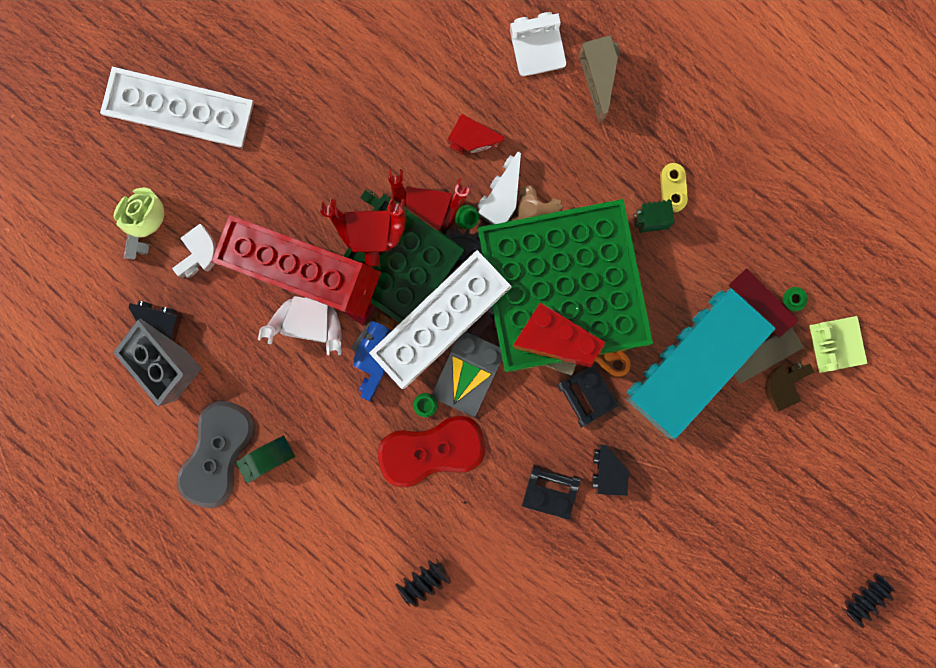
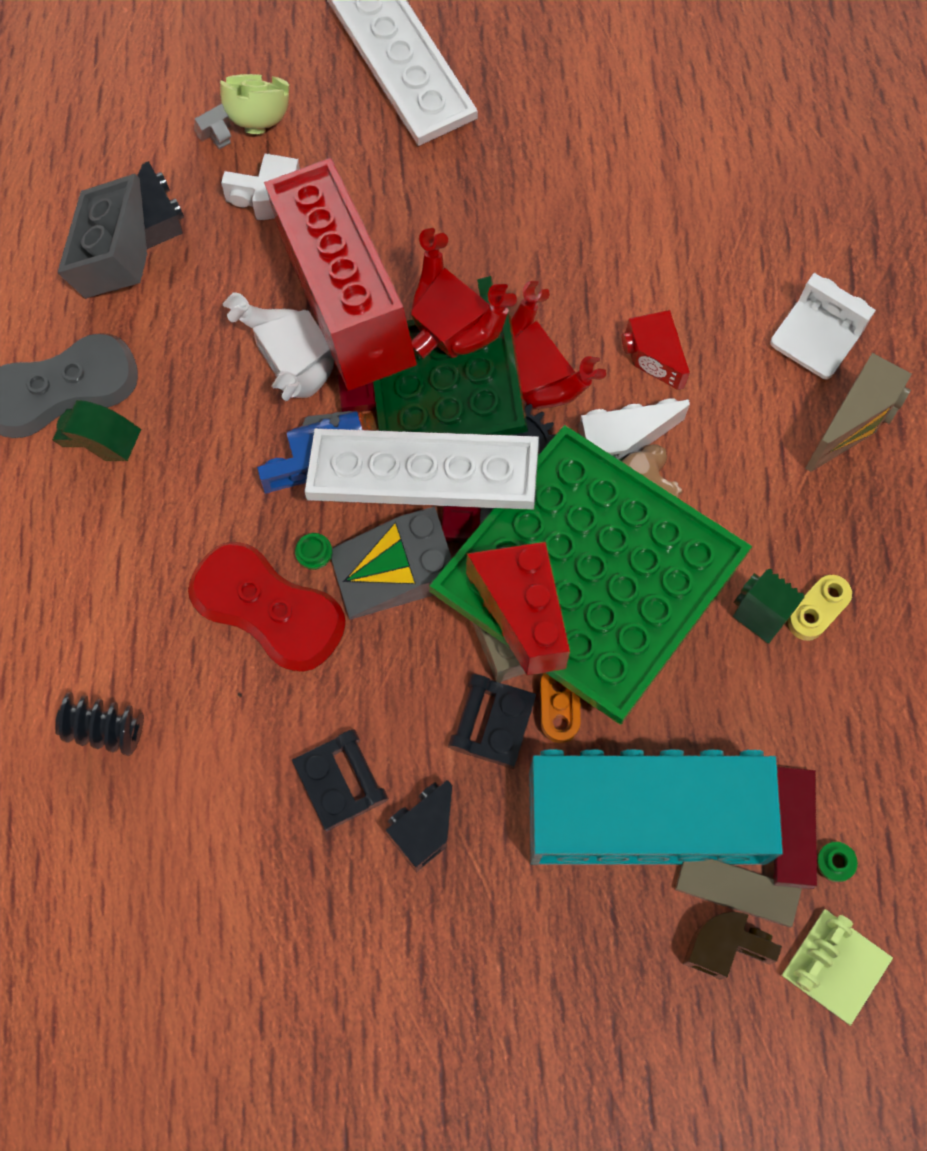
camera: 45 degrees right, 15 degrees down
(467, 217) = (565, 409): green plate -> none

